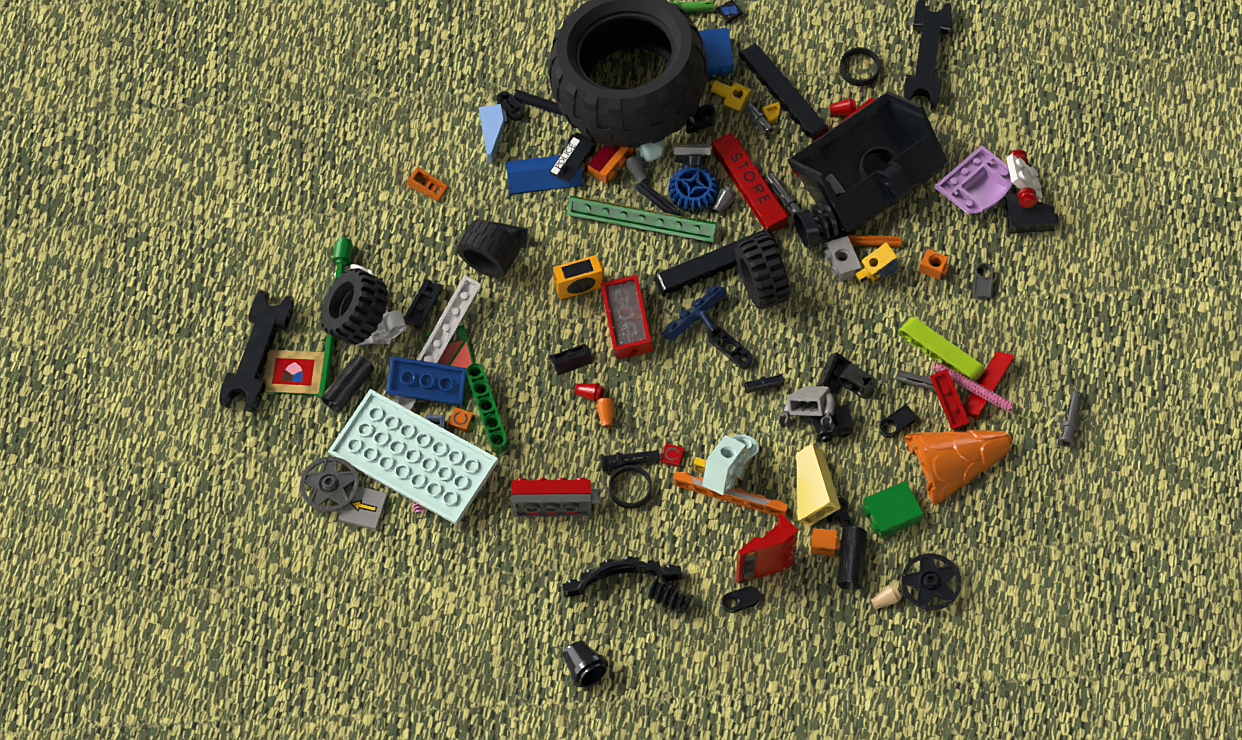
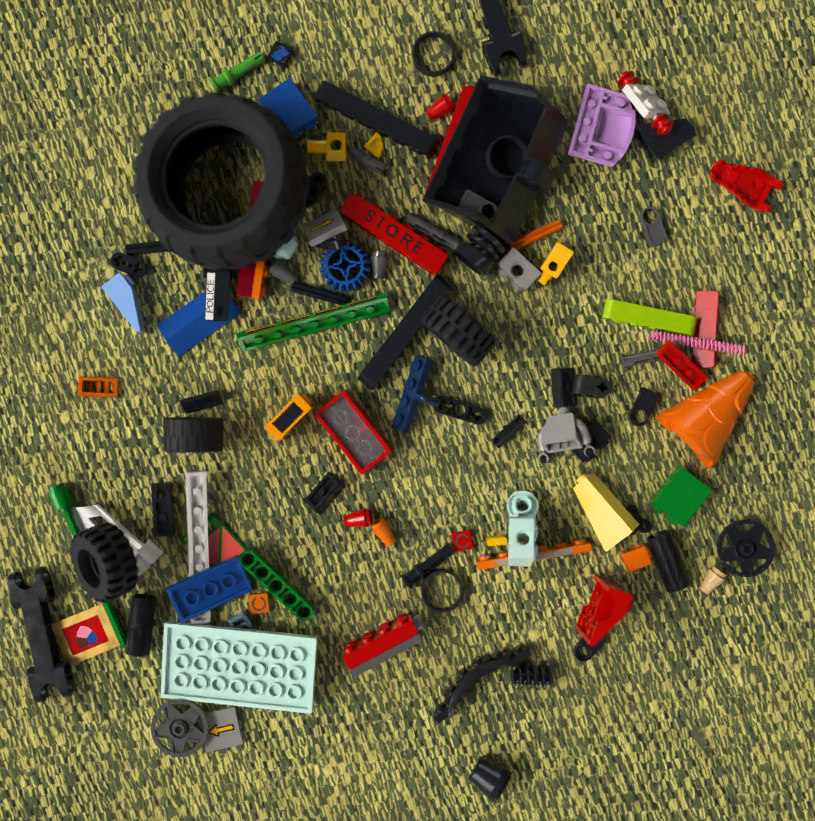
camera: 25 degrees left, 25 degrees up
(932, 257) = (594, 233): orange brick -> none
(1070, 425) = (795, 334): dark grey pin -> none
(1086, 286) = (746, 183): none -> red animal

